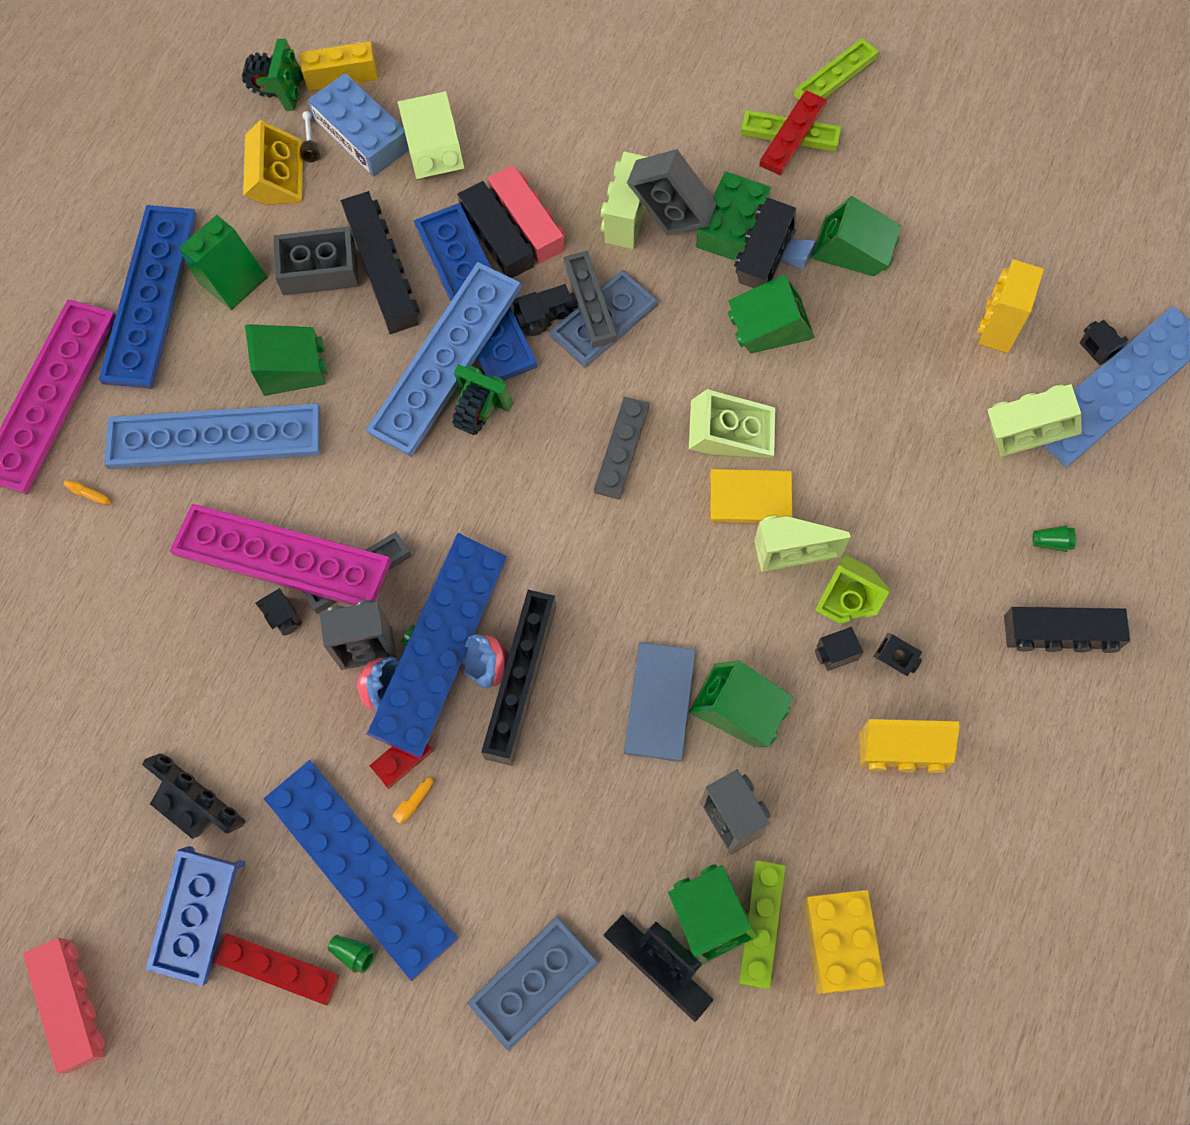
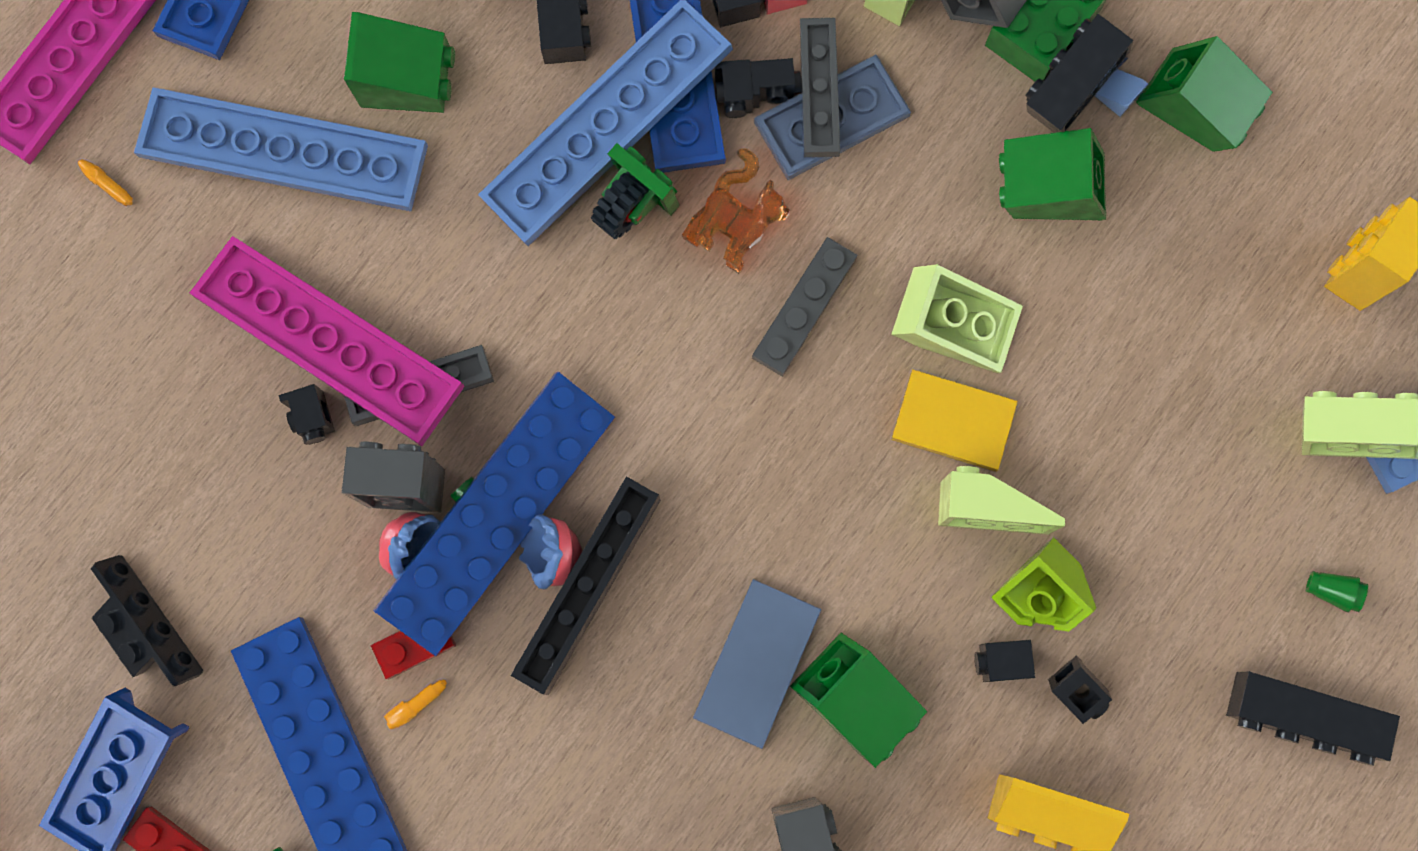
camera: 15 degrees right, 10 degrees up
(553, 400) = (733, 218): none -> clear orange animal

